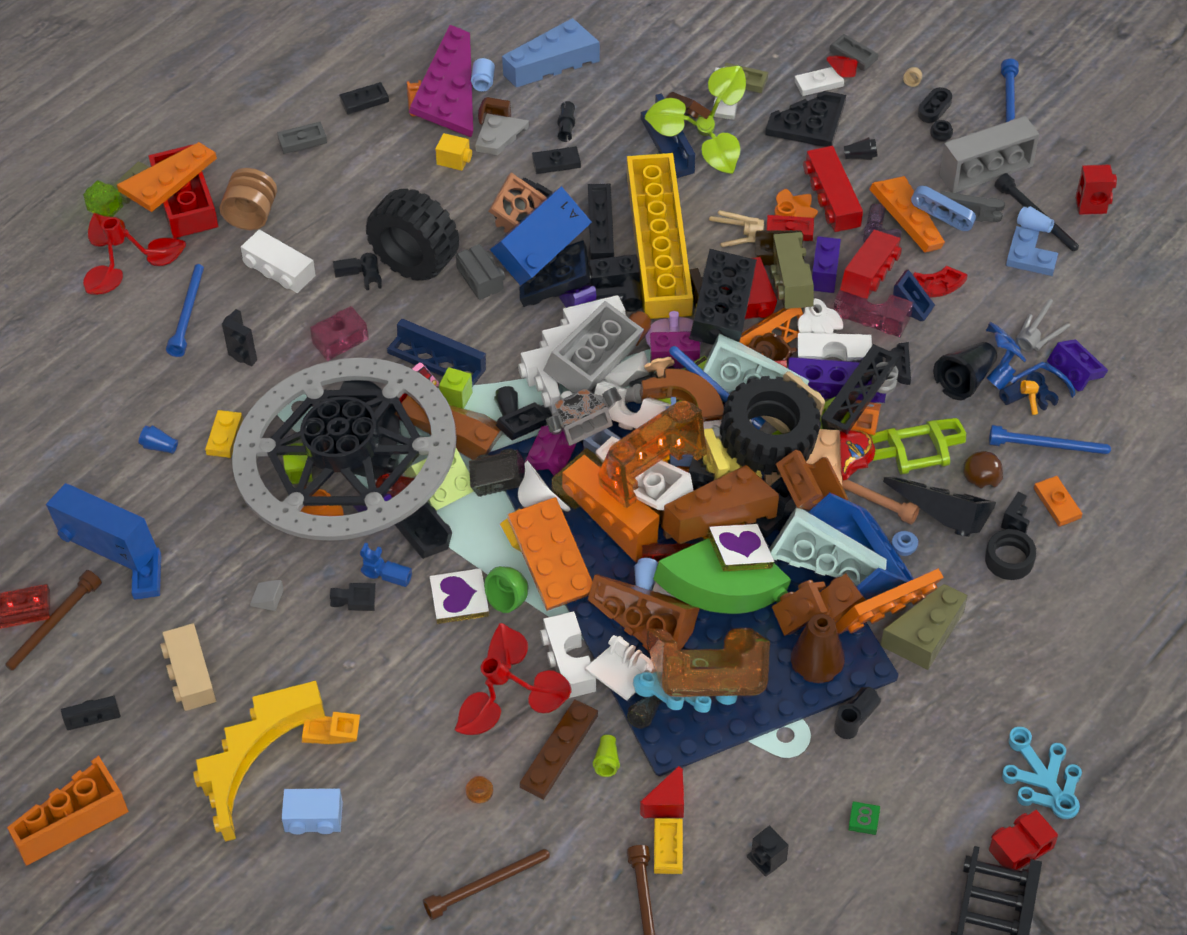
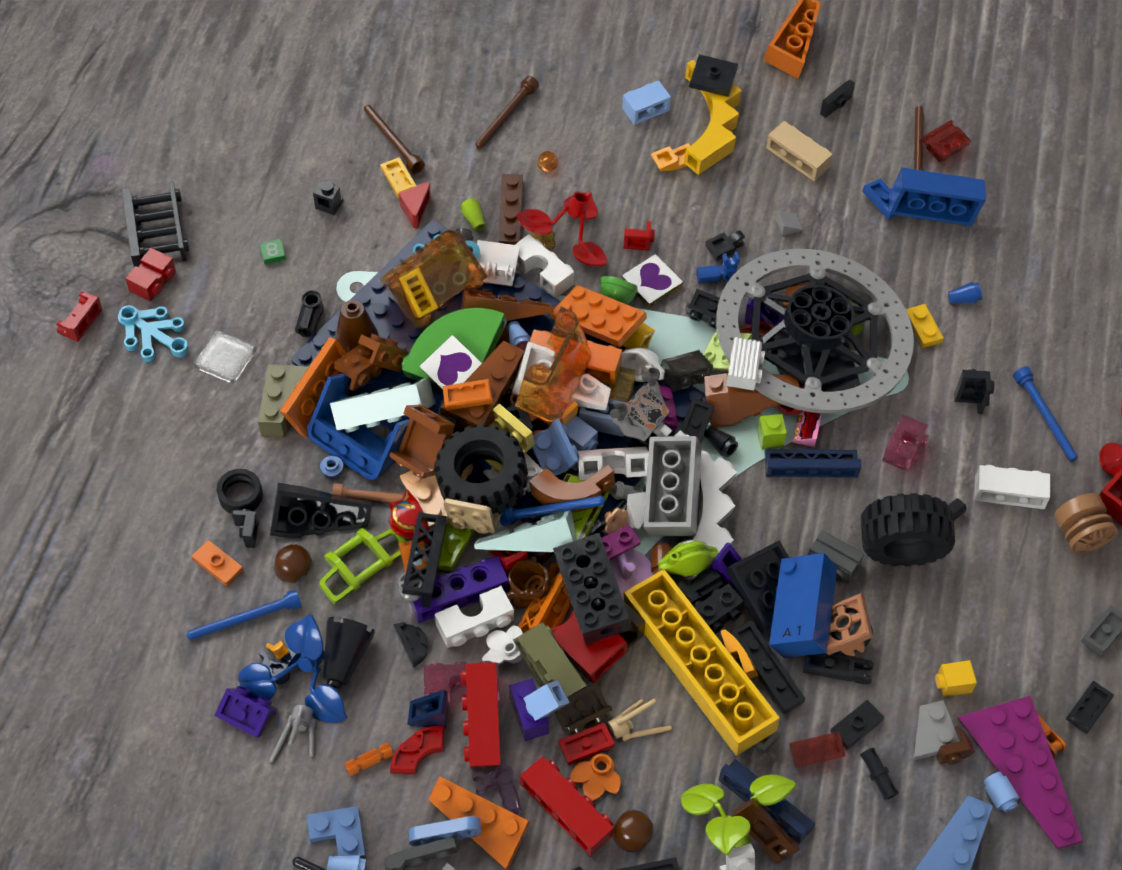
camera: 150 degrees right, 5 degrees up
(215, 786) = (713, 75): none -> black plate
(441, 639) = (639, 239): none -> red bracket
(450, 415) = (744, 364): none -> white brick
(603, 151) = (817, 749): none -> clear red plate
(619, 295) = (688, 558): none -> lime hat
(621, 225) = (738, 651): none -> light orange slope
(732, 640) = (426, 308): none -> yellow slope
(748, 480) = (467, 394): none -> orange plate
(786, 161) = (633, 831): none -> reddish brown hair
(816, 231) = (546, 700): none -> light blue brick
(970, 710) = (225, 356): none -> clear tile
(981, 290) = (369, 759): none -> orange axle
(1126, 827) = (81, 317): none -> red hinge

